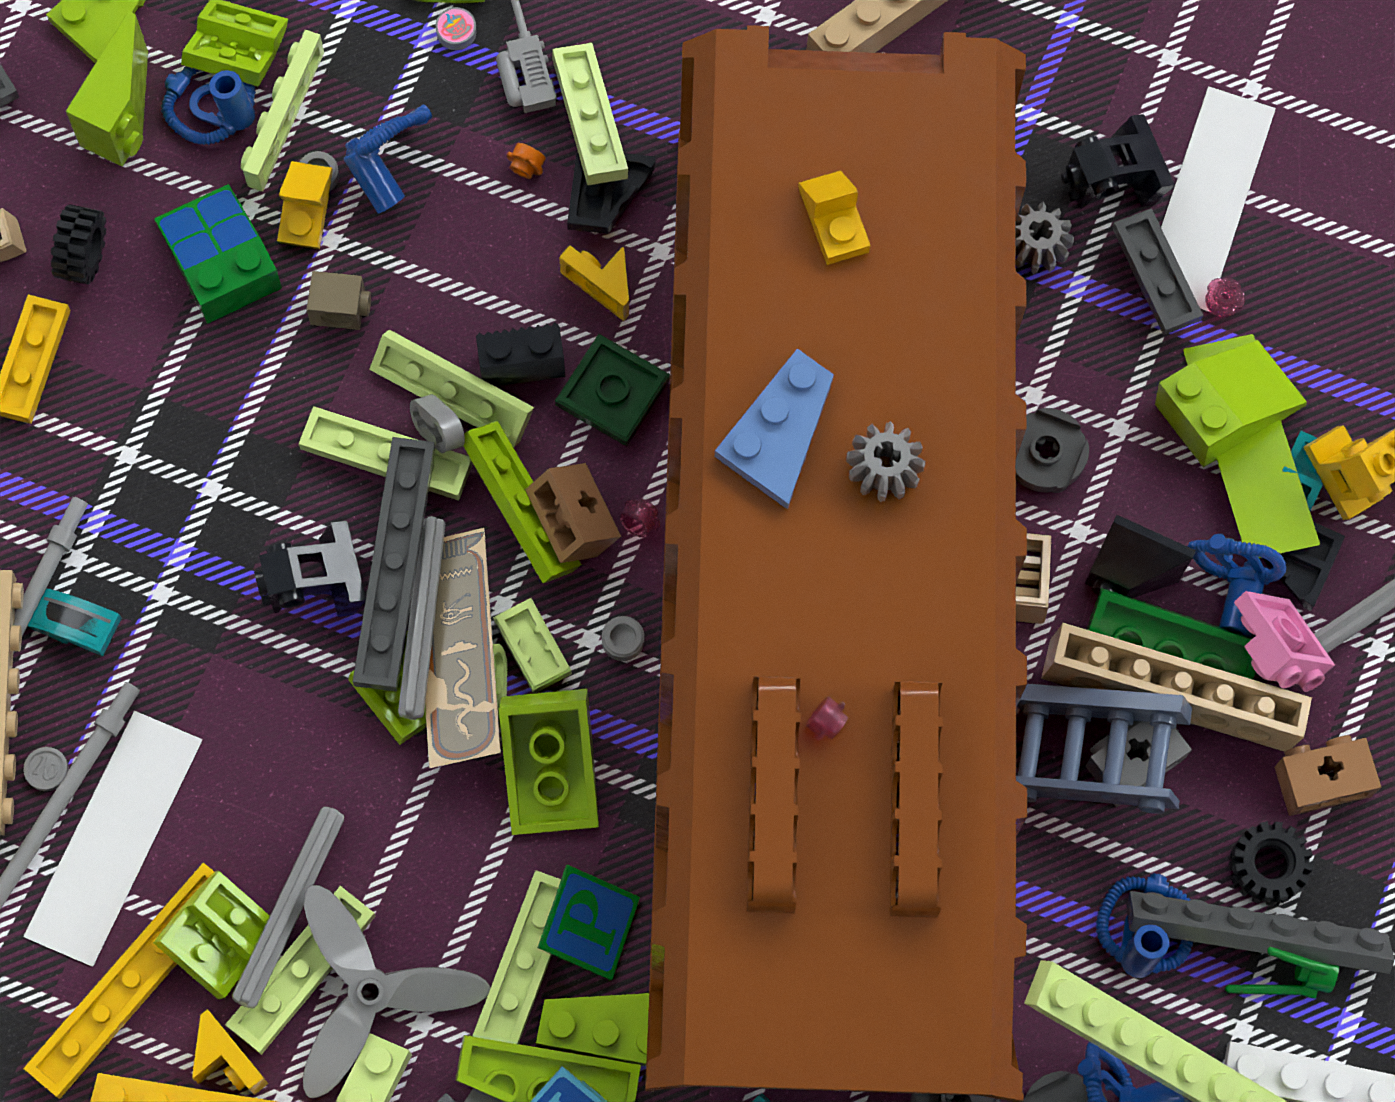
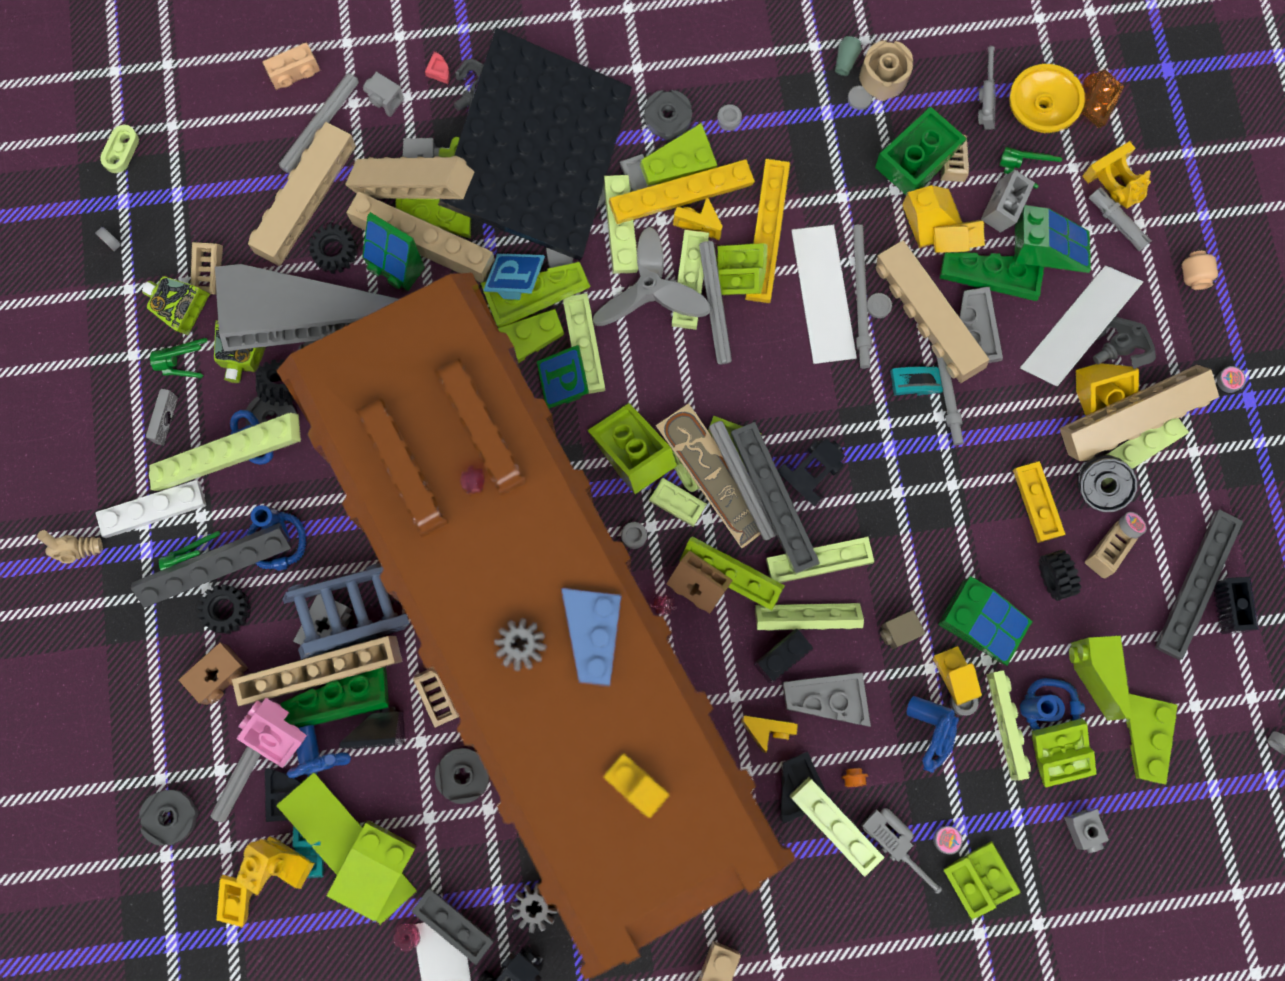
camera: 150 degrees right, 5 degrees up
(437, 423) = (802, 588): light grey beam -> none
(489, 273) = (829, 697): none -> light grey wing
(612, 389) = (722, 668): dark green plate -> none

